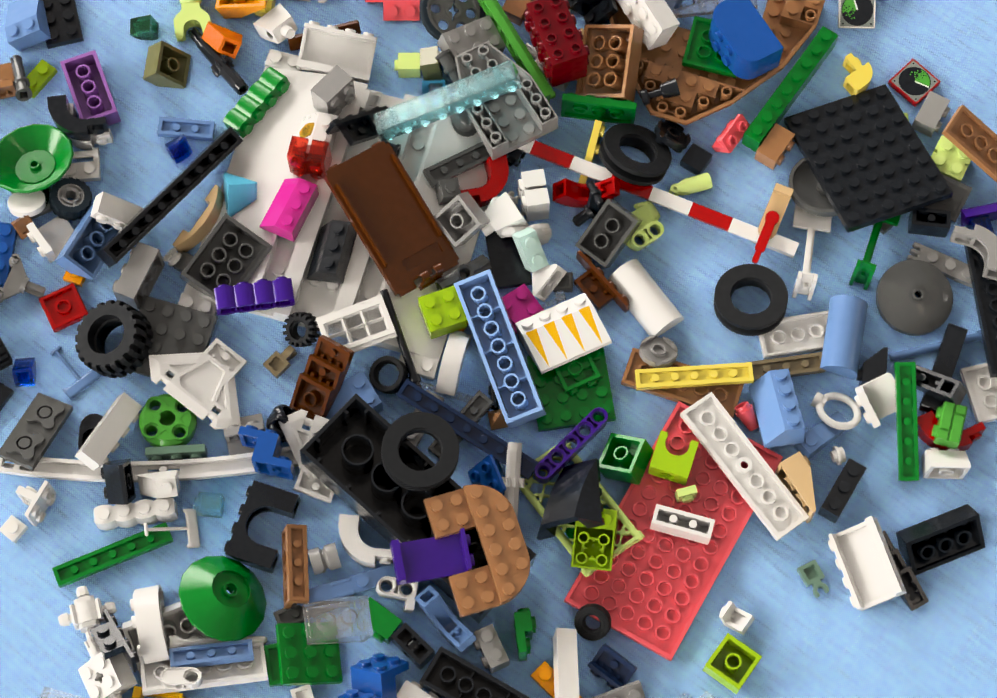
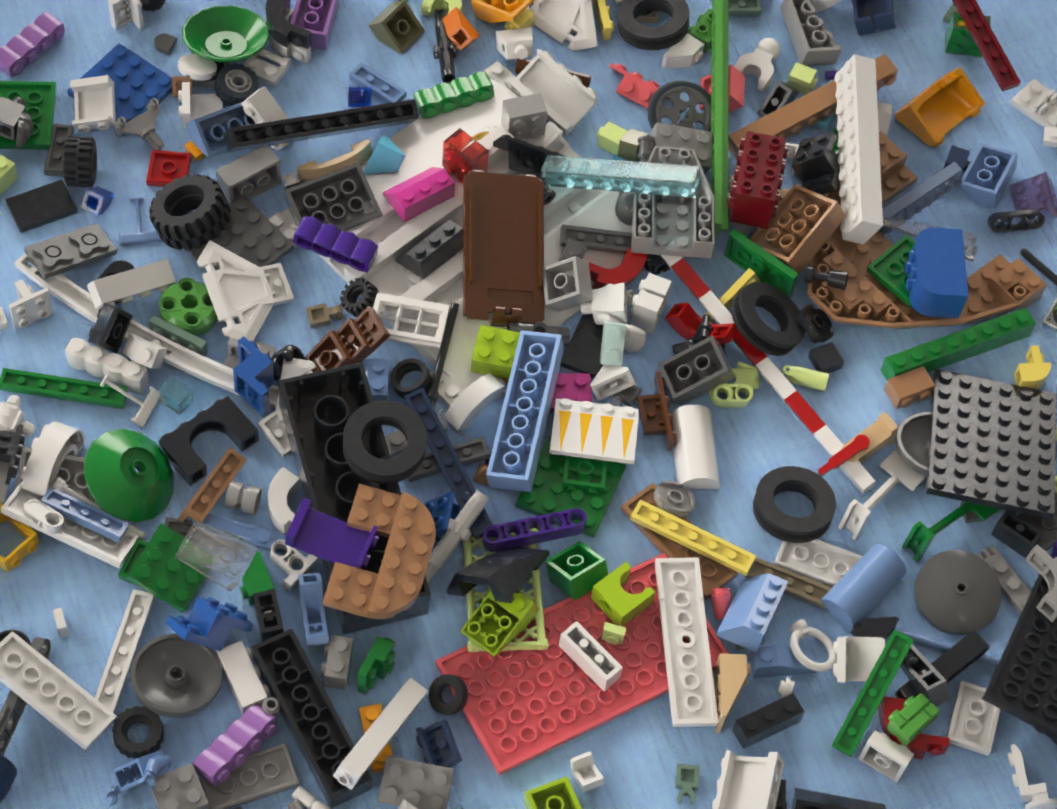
camera: 25 degrees right, 10 degrees down
(731, 135) = (873, 353): coral bracket -> none

